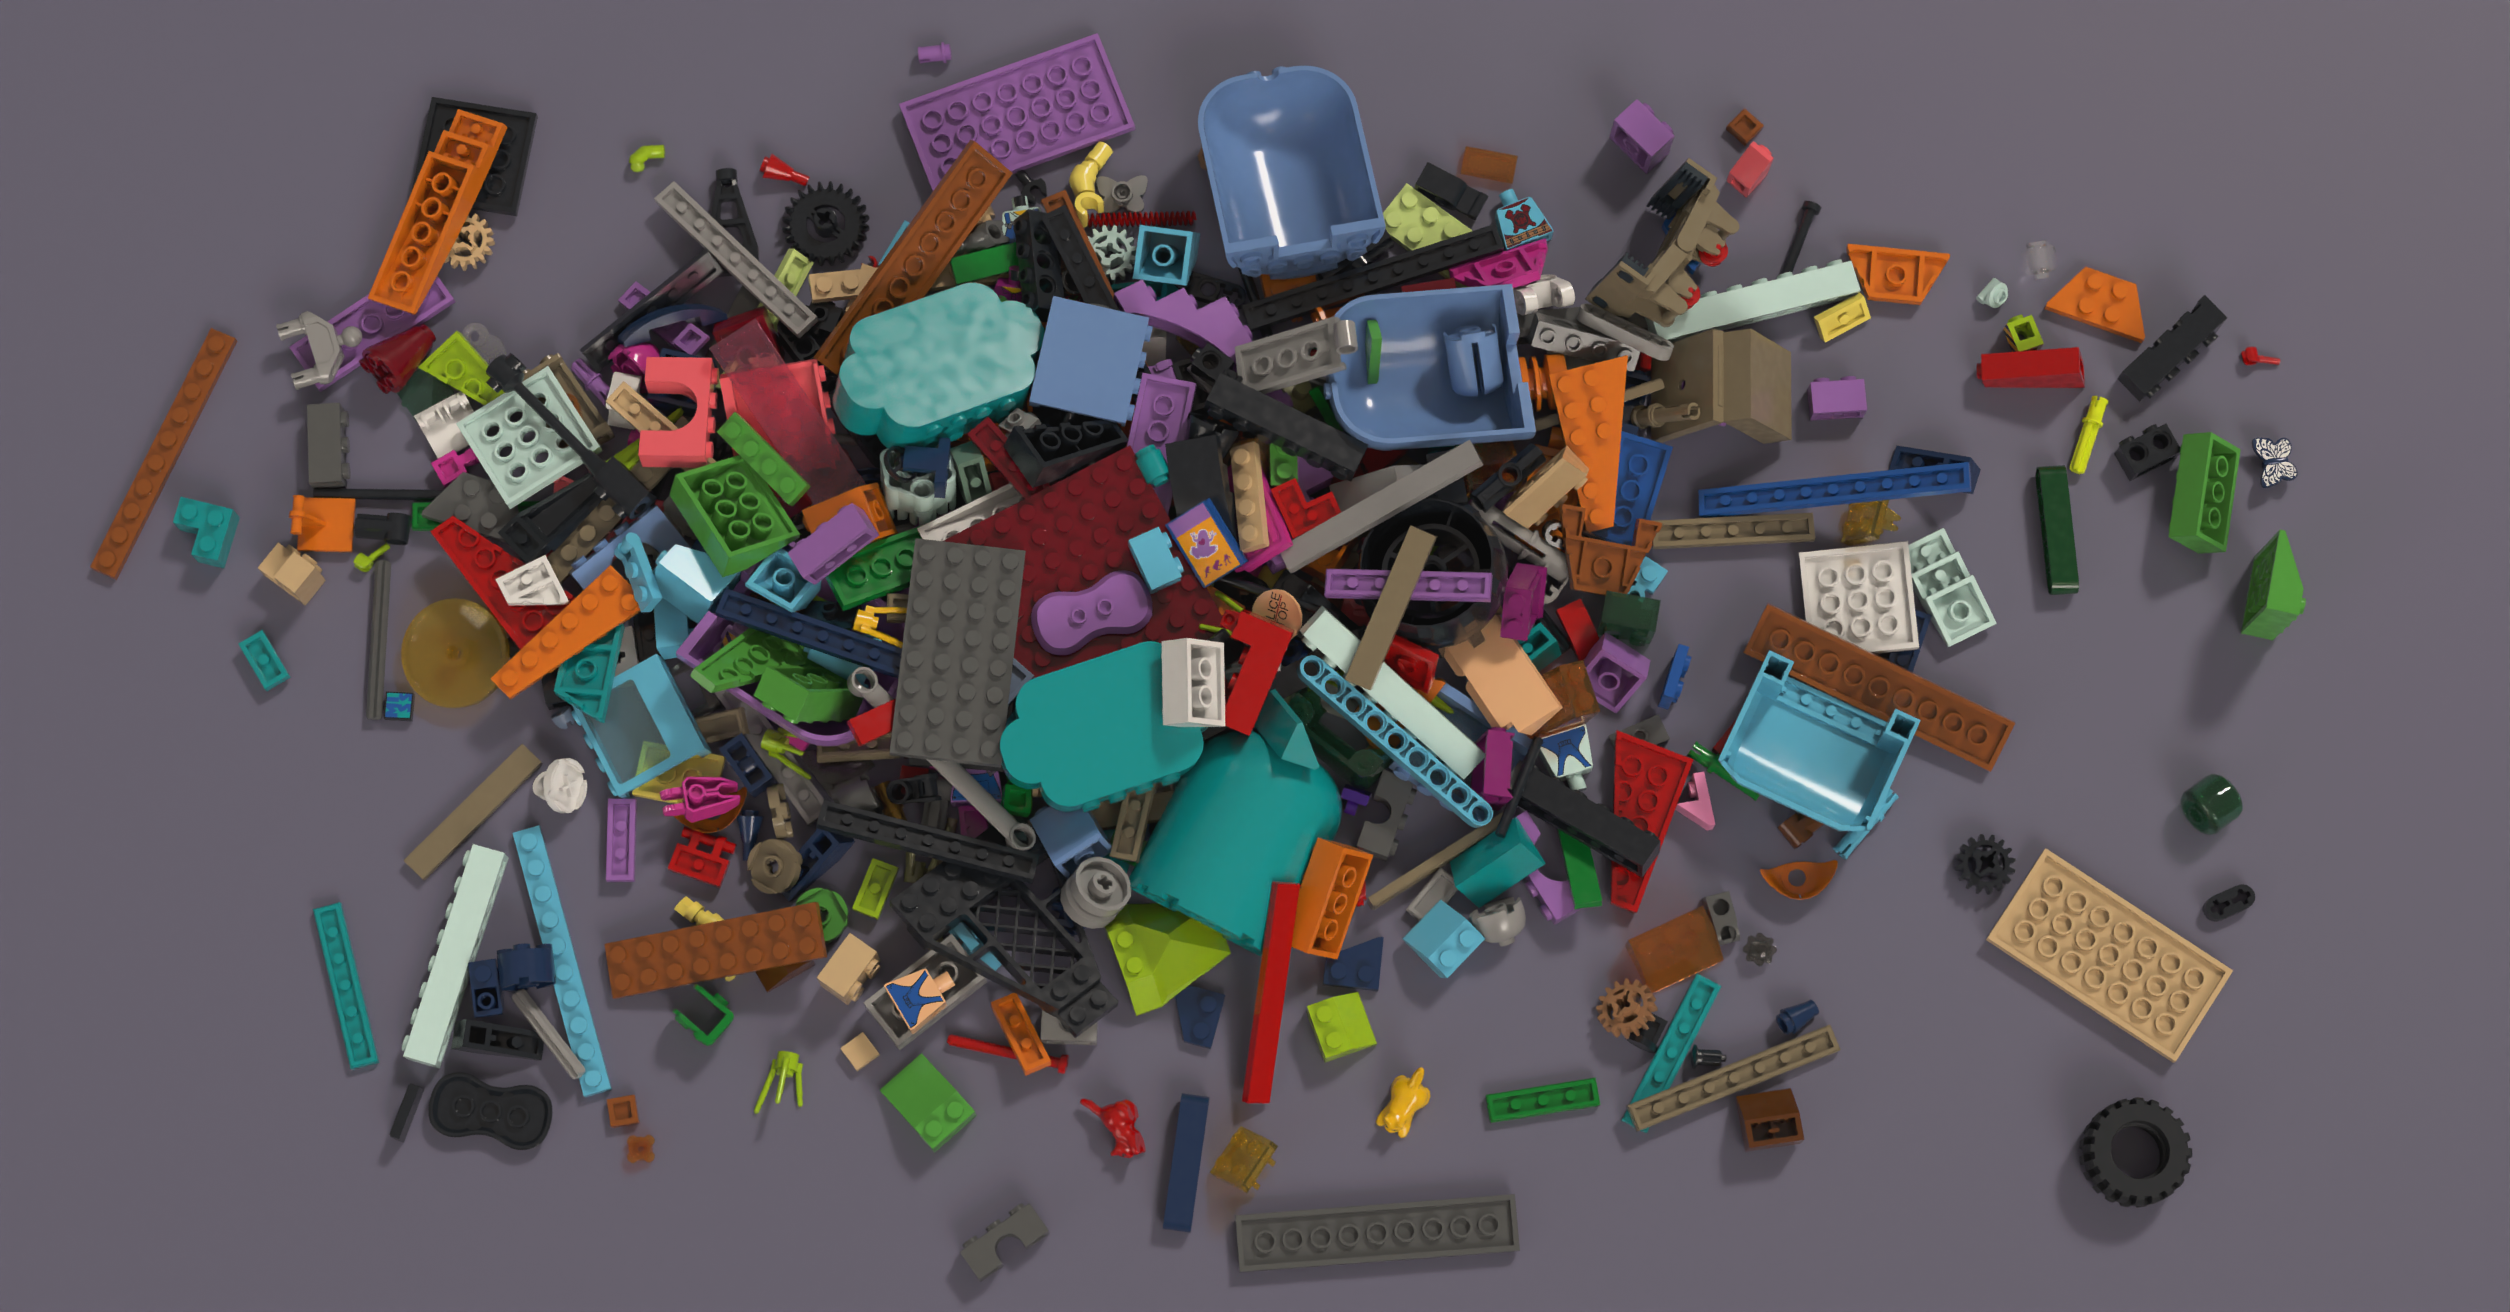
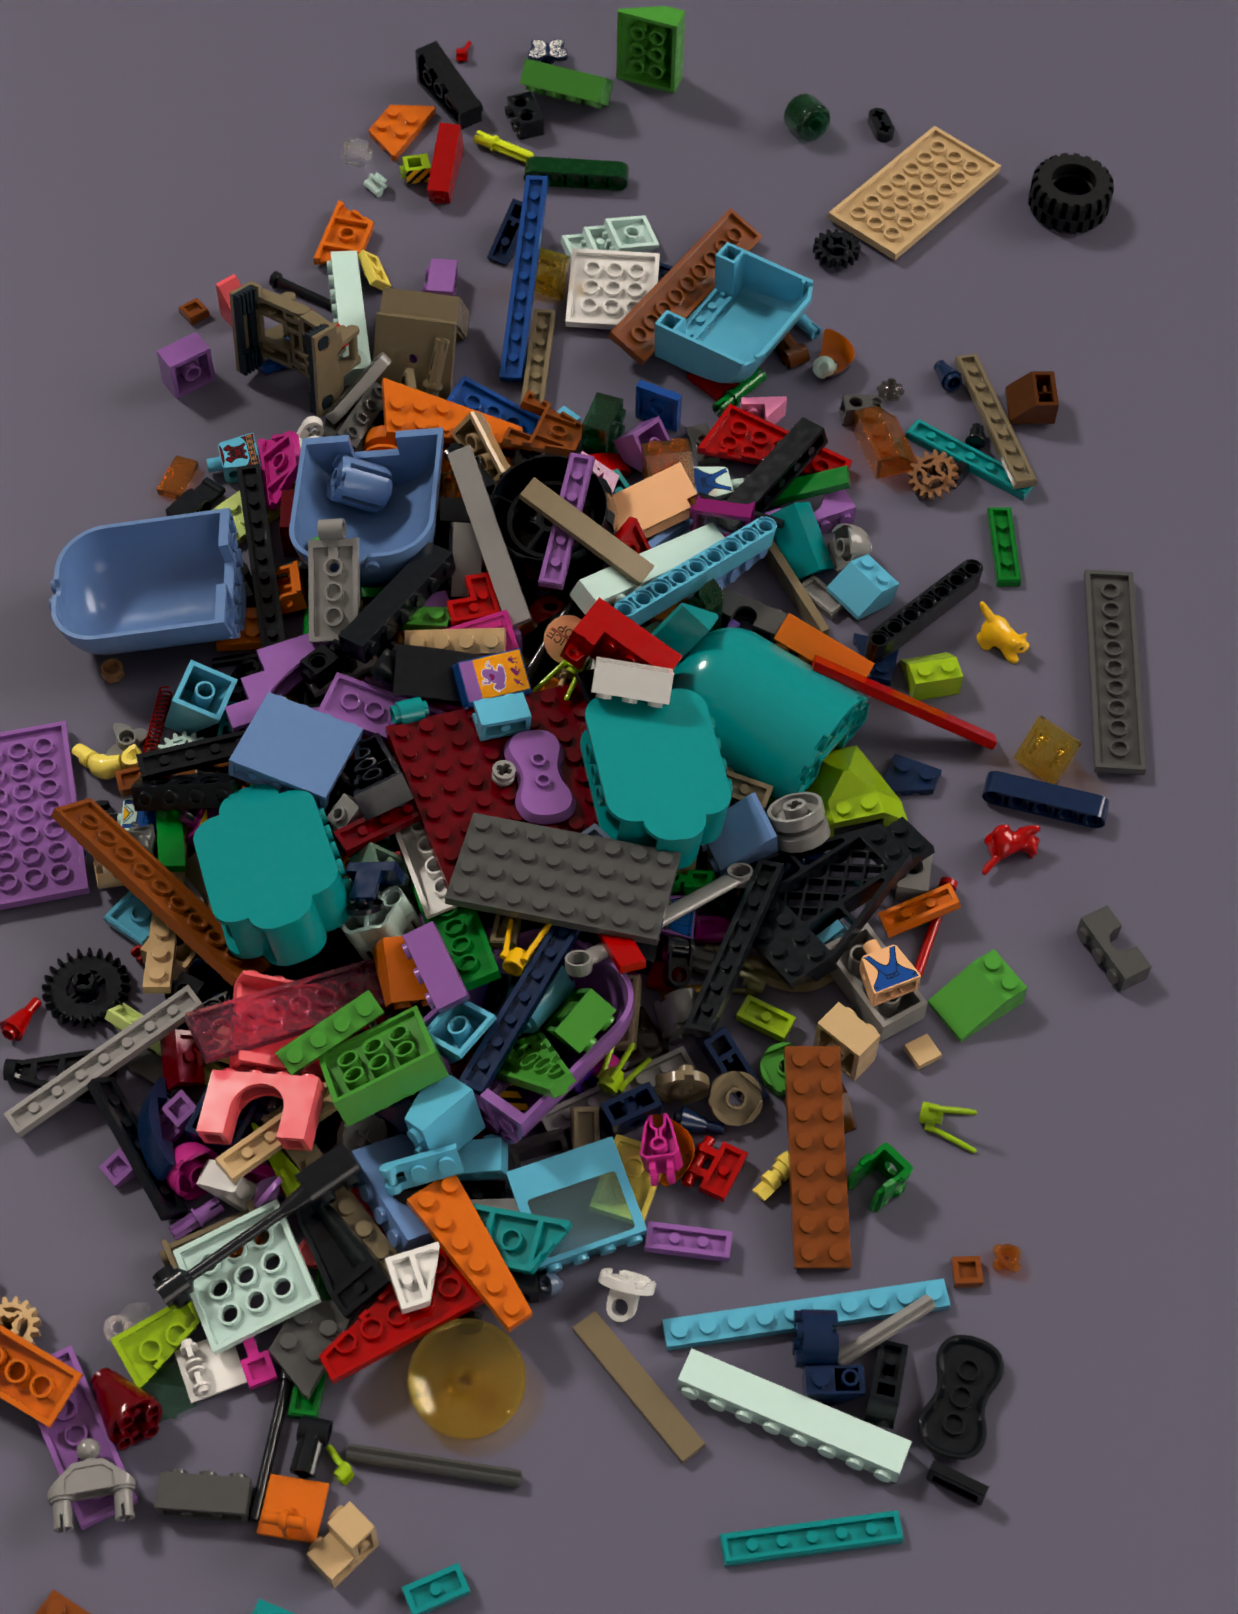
camera: 80 degrees left, 20 degrees down
(399, 706) = (511, 1451): tile -> none
(615, 437) = (267, 1190): none -> medium lavender piece
(1093, 571) = (506, 779): none -> light grey bush
(1433, 1012) = (923, 610): none -> black beam
(1781, 868) = (824, 367): none -> light aqua plate

